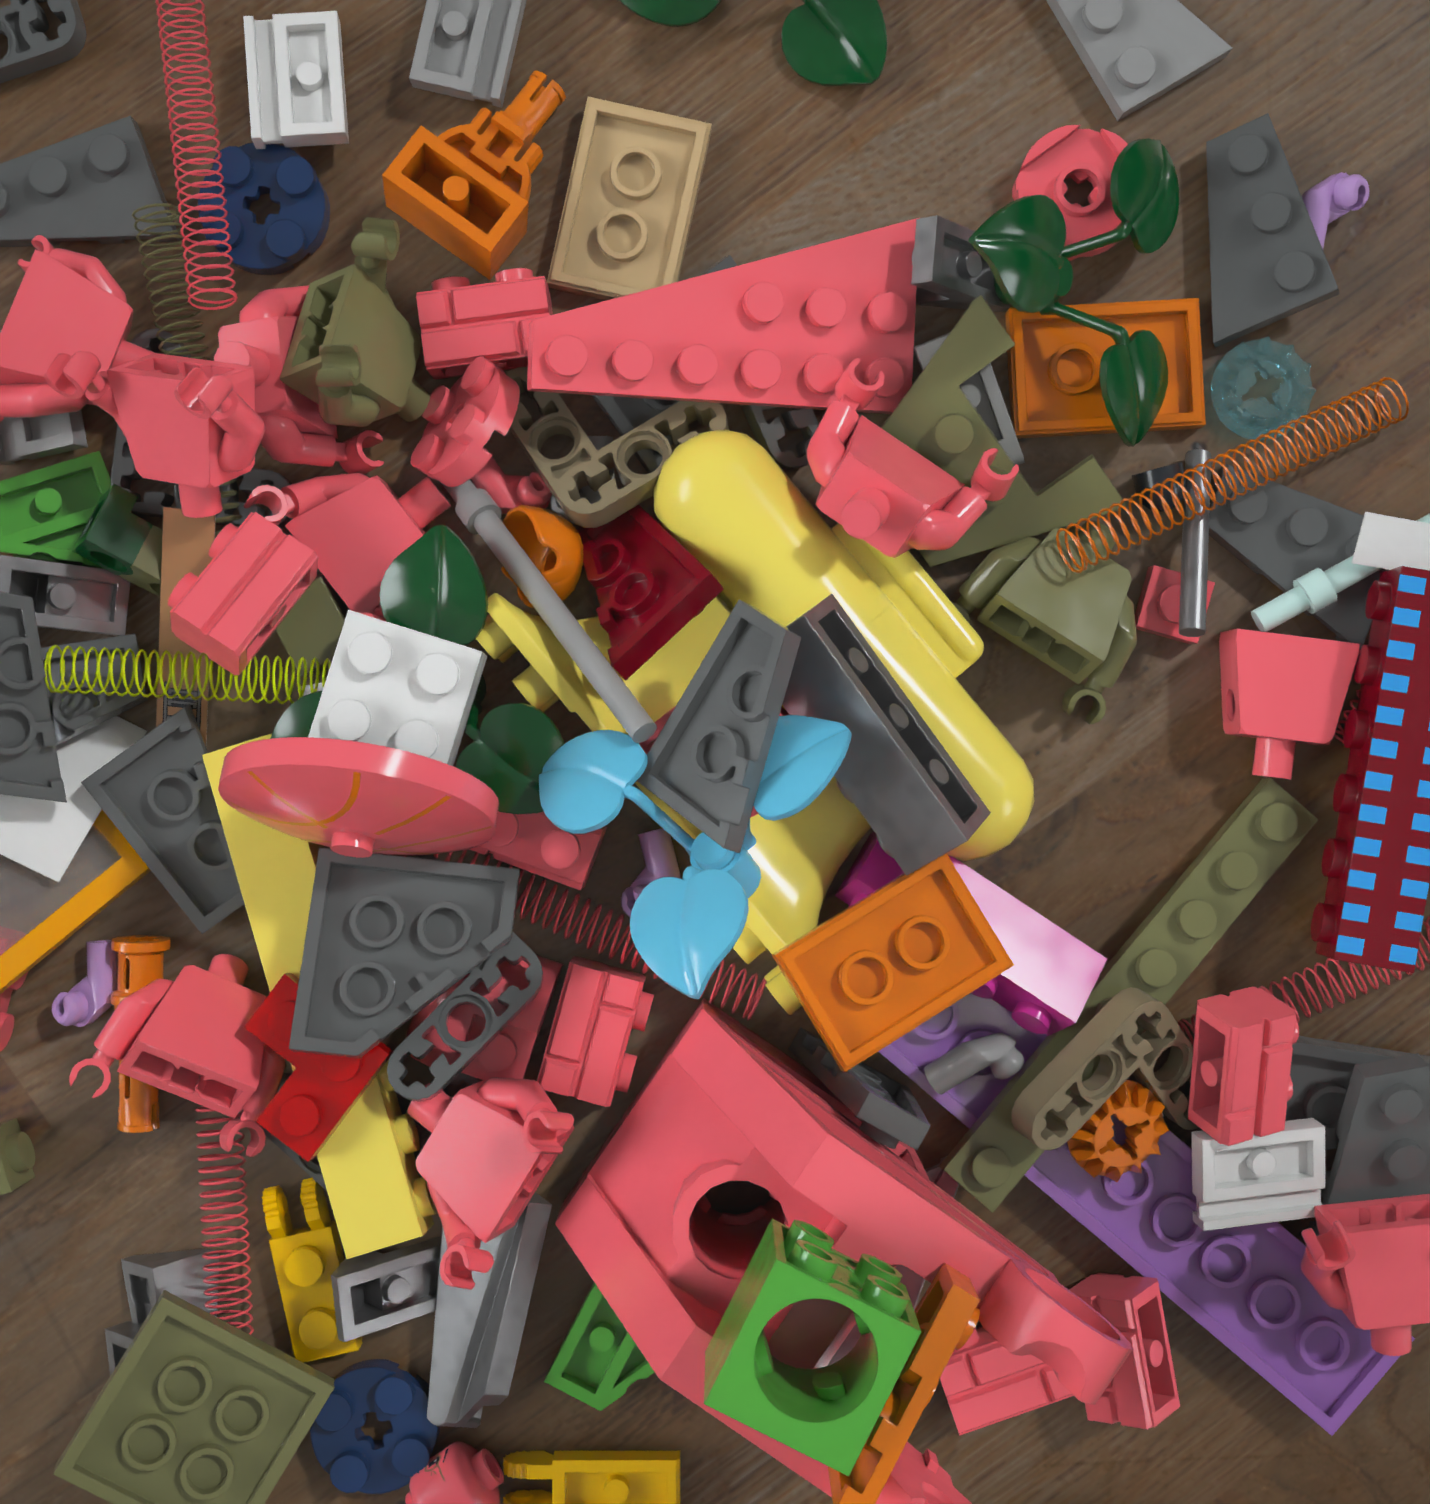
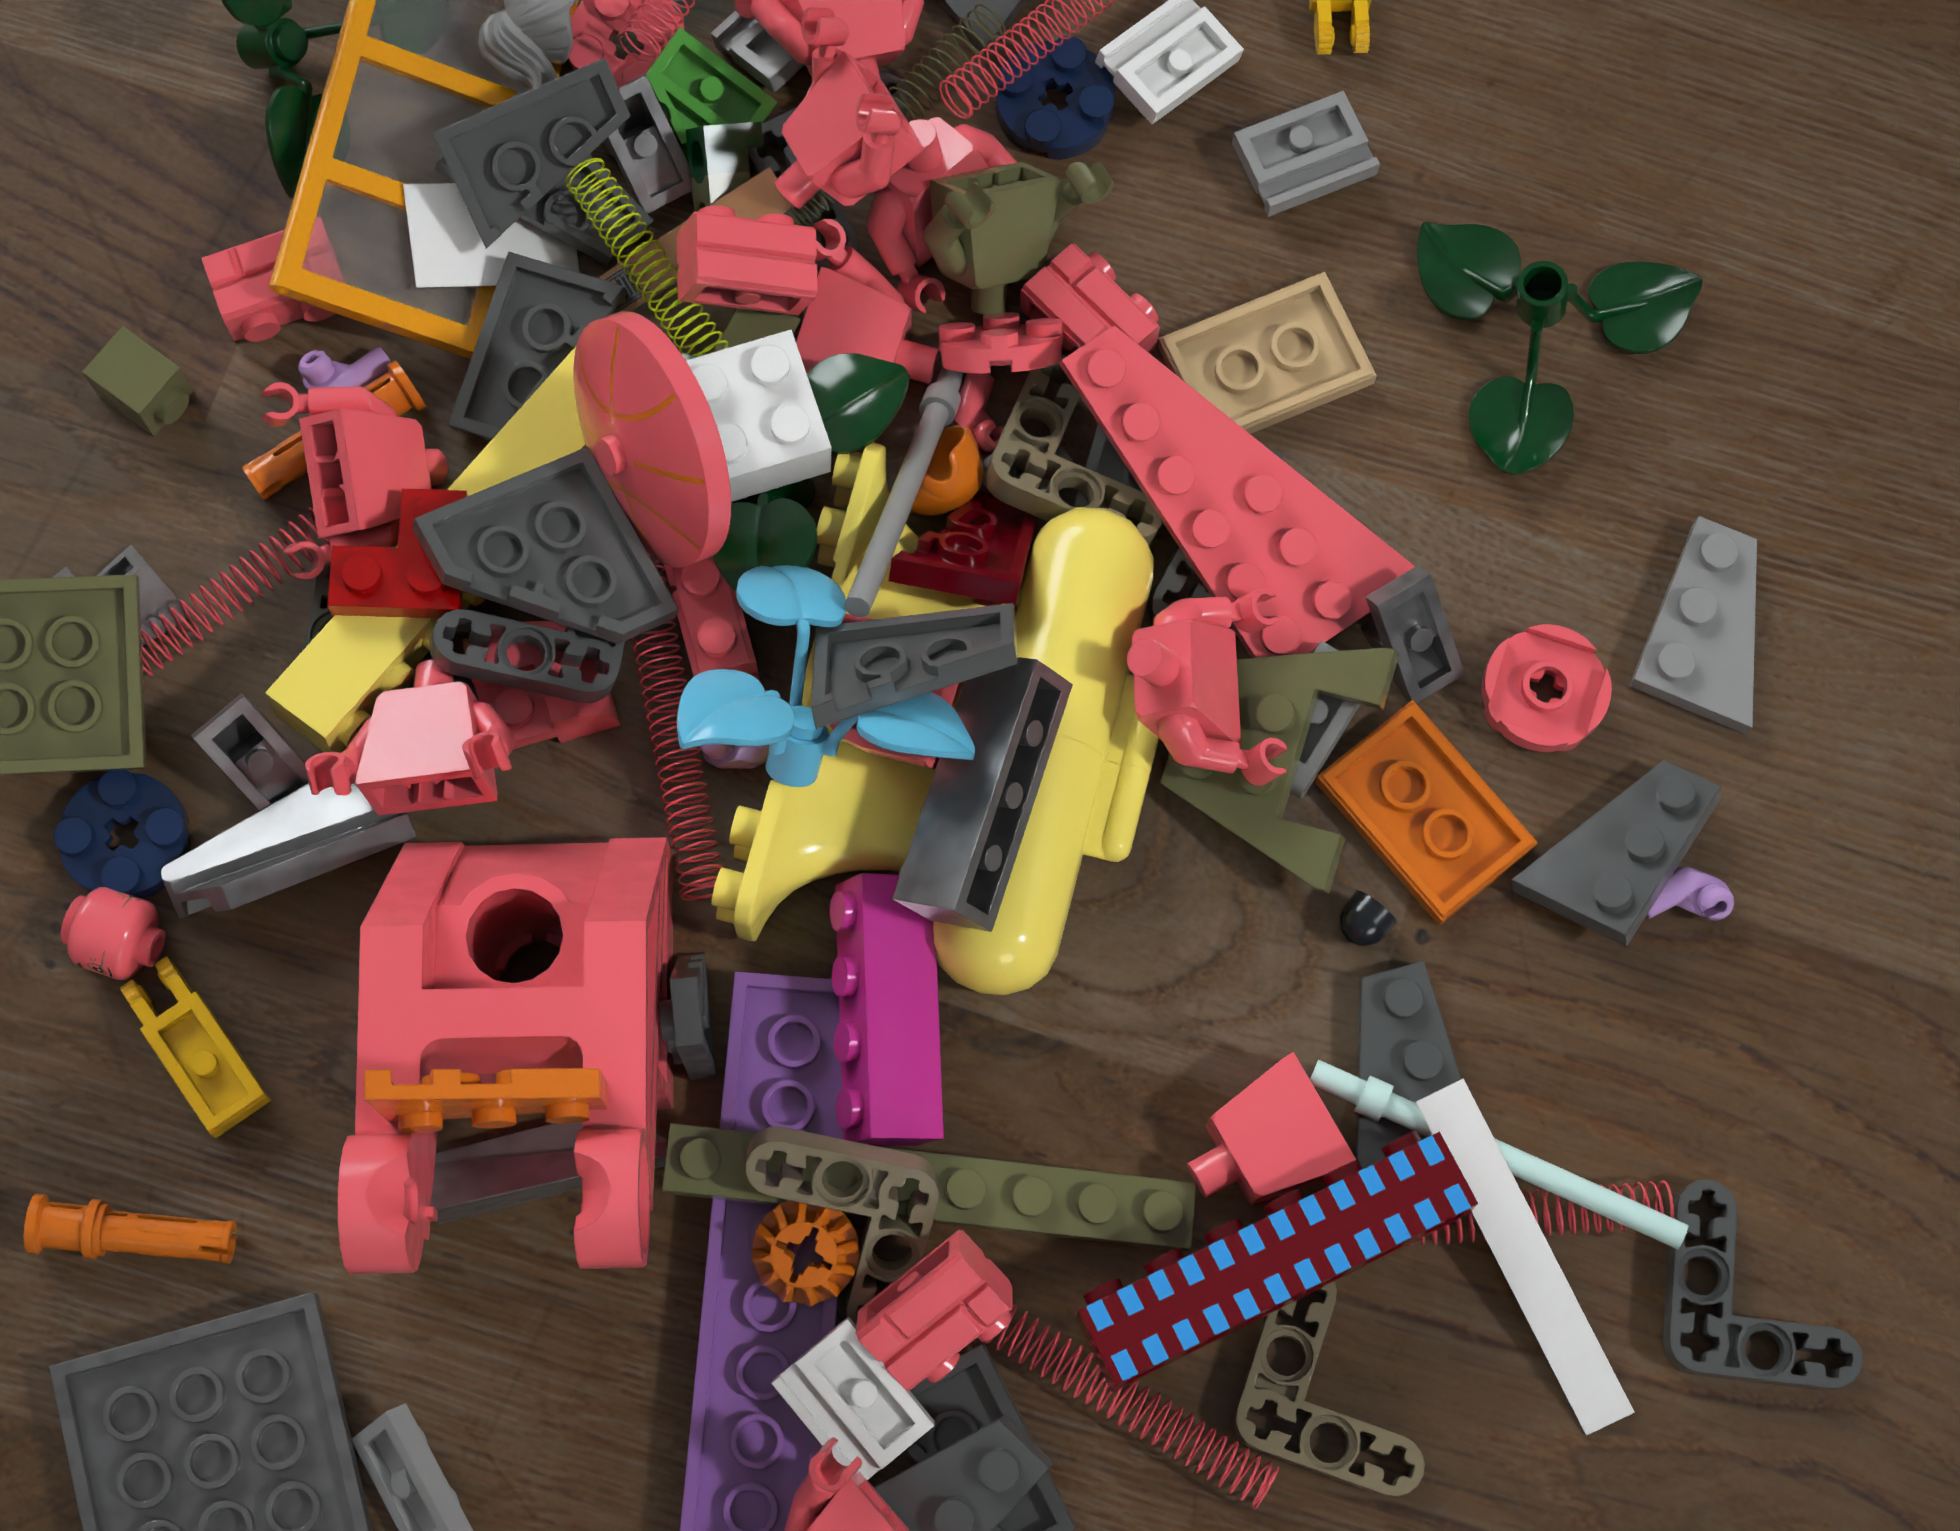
camera: 50 degrees right, 15 degrees down
(304, 1269) = (214, 689): yellow hinge -> none
(475, 179) = (1195, 231): orange brick -> none
(593, 1030) = (583, 779): coral brick -> none
(597, 1356) = (314, 975): bright green wing -> none
(817, 1409) = (432, 941): bright green brick -> none
(892, 961) = (816, 943): orange tile -> none
(973, 1056) = (783, 1087): light grey arm -> none
(993, 1385) = (531, 1314): coral brick -> none
(1032, 272) = (1439, 653): dark green plant -> none
(1060, 616) = (1205, 901): olive torso -> none
(1145, 1384) = (618, 1400): coral brick -> none
(1160, 604) = (1278, 1003): coral plate -> none
(1195, 552) = (1338, 976): flat silver bar -> none
(1236, 376) = (1479, 956): clear light blue gear -> none
(1377, 395) = (1575, 1052): orange piece -> none

